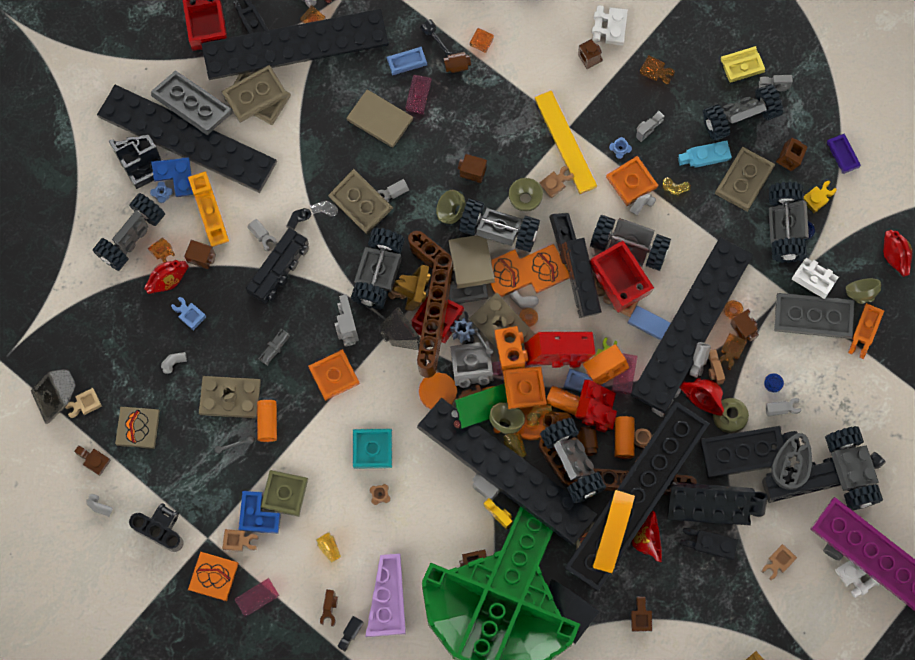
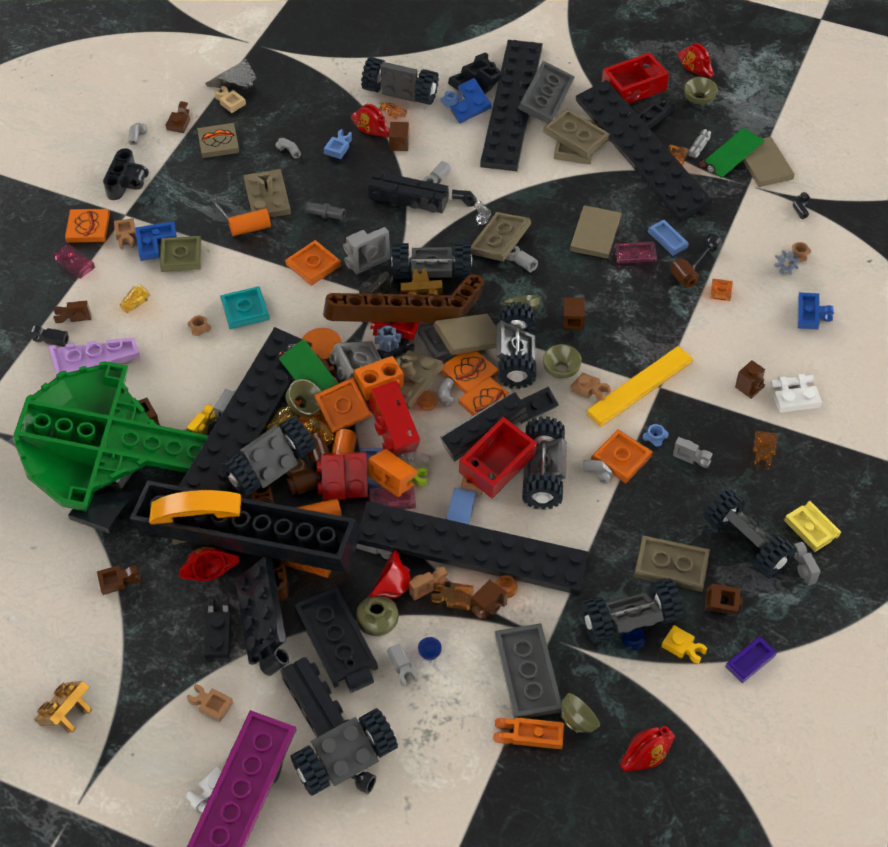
camera: 70 degrees right, 20 degrees down
(208, 209) = (447, 134): light orange slope -> none
(671, 187) = (629, 496): clear yellow arm -> none
(700, 359) = (430, 561): light grey bar -> none
(706, 154) = (684, 517): medium azure hinge -> none
(781, 462) = (329, 664): dark grey piece -> none
(815, 278) = (569, 656): white plate -> none

